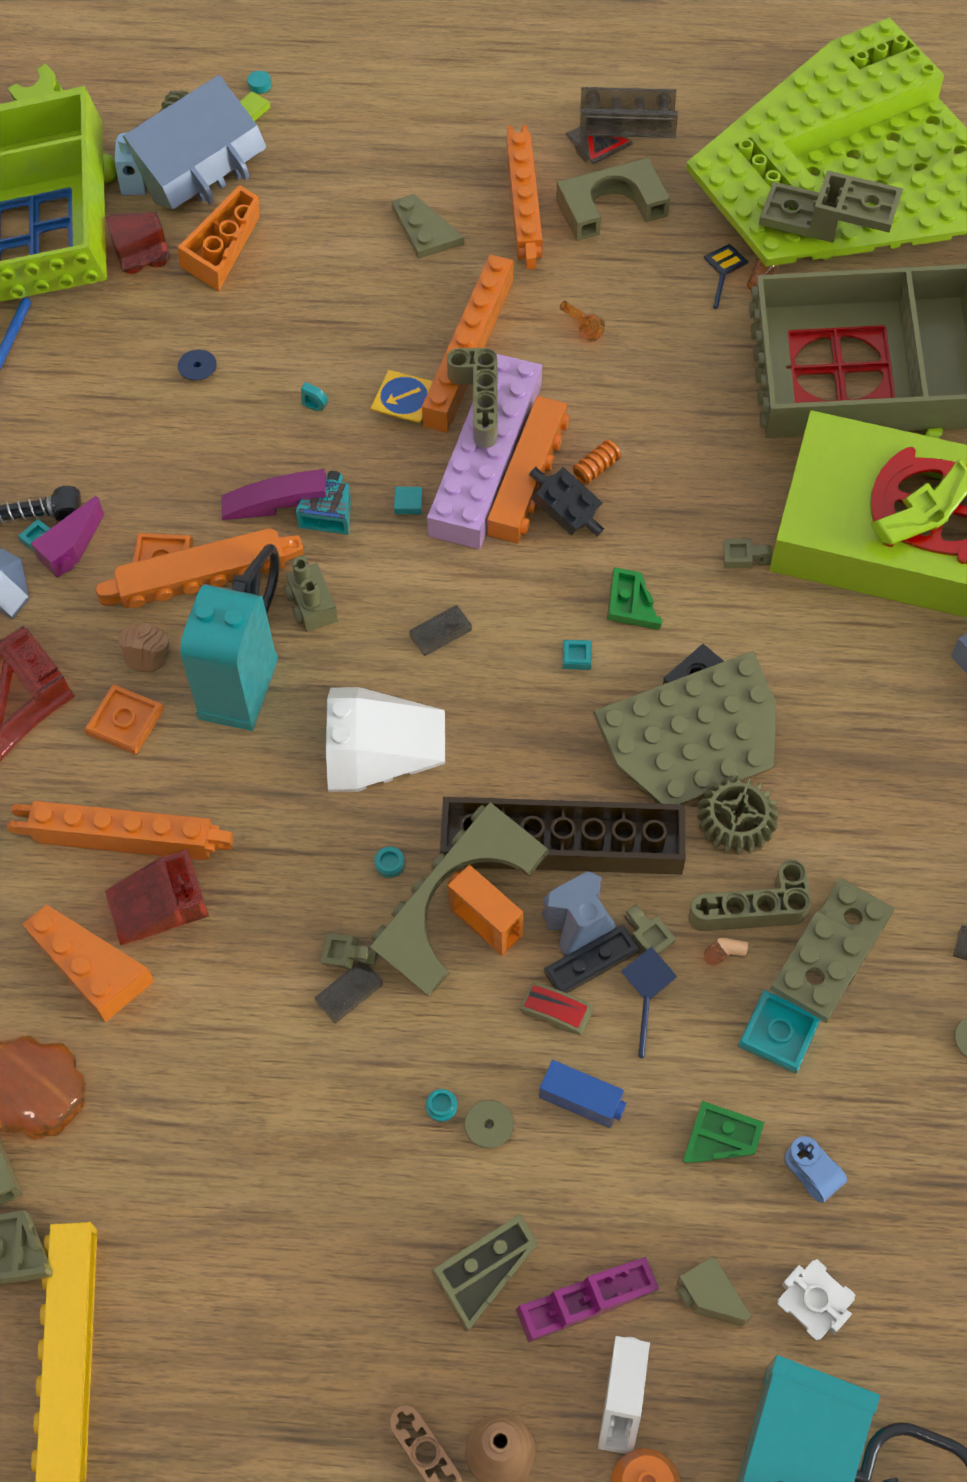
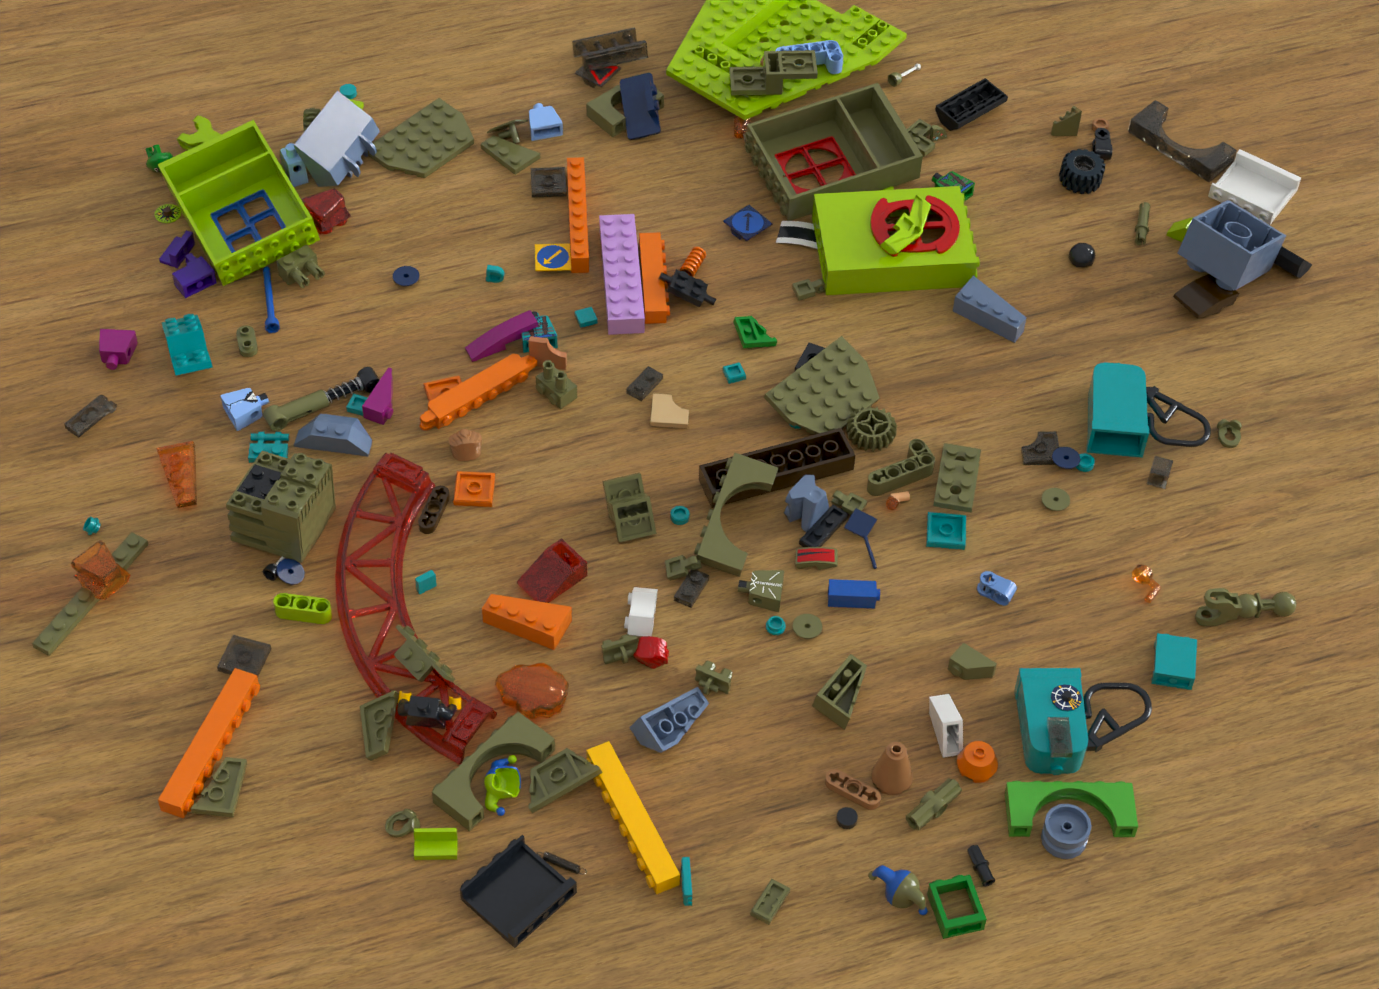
camera: 25 degrees left, 10 degrees down
(52, 745) = (436, 516): none -> dark brown beam
(63, 309) = (298, 265): none -> olive brick
(119, 830) = (506, 546): orange hinge -> none
(191, 1063) = (619, 649): none -> olive hips
(194, 1222) = (668, 723): none -> sand blue wedge
(220, 238) = (379, 200): orange wedge -> none
(230, 1088) = (652, 652): none -> red hair
(231, 646) = (534, 424): teal piece -> none
(247, 1017) = (641, 612): none -> white brick
(313, 1174) = (712, 680): none -> olive hips
(314, 828) = (629, 507): none -> olive bracket
(318, 543) = (543, 350): none -> nougat tile
(322, 177) = (424, 140): none -> olive plate
(379, 738) = (640, 449): white wedge -> none
(439, 195) = (511, 132): none -> olive shield
(449, 689) = (667, 413): none -> tan tile
(451, 281) = (548, 182): none -> clear smoke plate
(452, 1035) = (764, 589): none -> olive torso
(478, 368) = (603, 226): olive beam -> none
(485, 909) = (754, 508): orange window -> none
(488, 194) = (544, 122): none -> light blue torso
(524, 196) = (573, 125): orange hinge -> none
(587, 1299) = (904, 690): magenta slope -> none
(590, 326) = (649, 185): clear orange plate -> none
(629, 205) = (640, 106): none -> dark blue bracket
(702, 424) = (747, 223): none -> piece
(722, 1135) = (939, 589): green wing -> none
(724, 261) = (715, 125): piece -> none
(769, 461) = (797, 233): none -> sticker
(816, 1299) = (1026, 648): white piece -> none
(832, 1444) = (1066, 697): none -> dark blue piece
(919, 196) = (825, 51): none -> light blue beam

